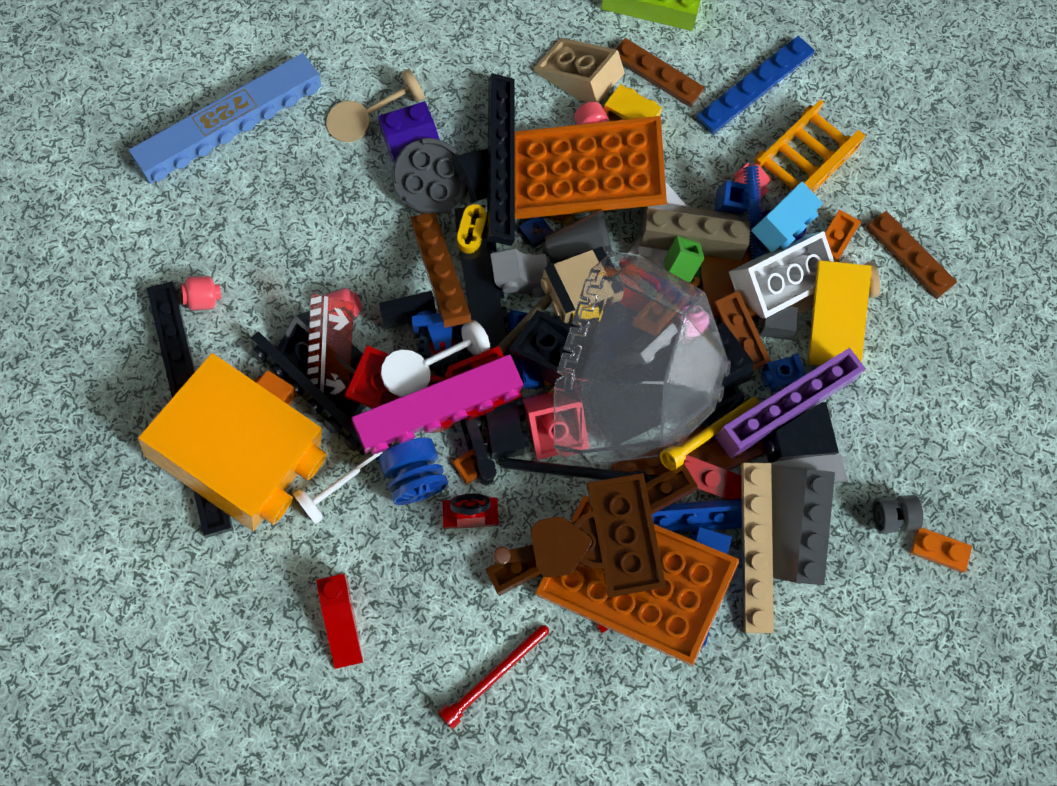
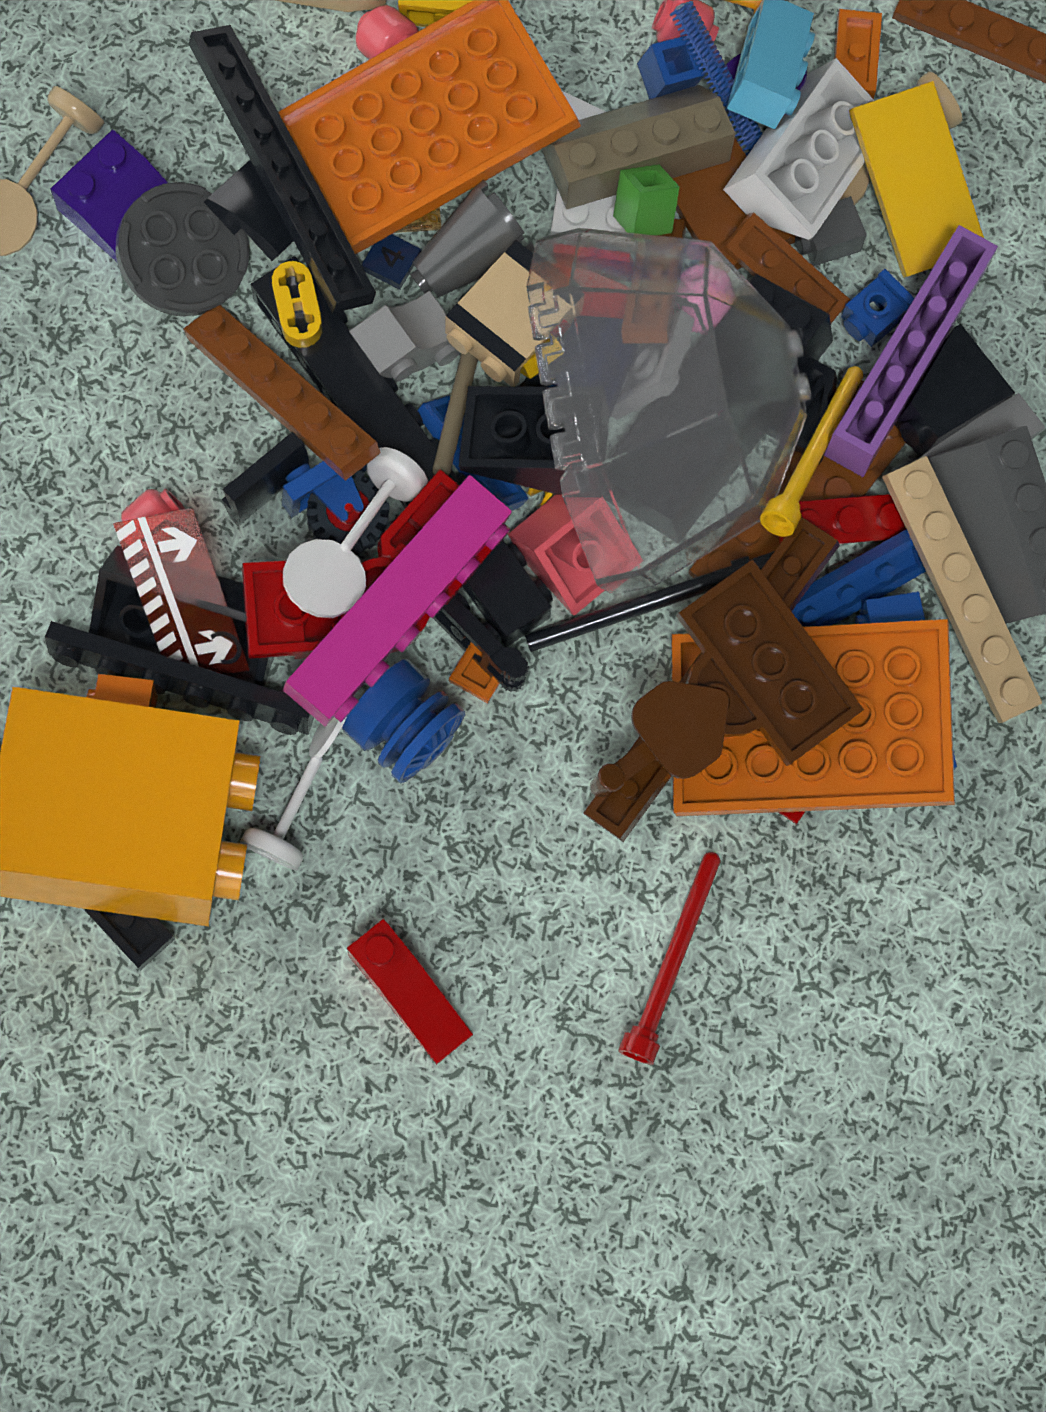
camera: 25 degrees left, 5 degrees up
(470, 511) = (516, 740): red piece -> none

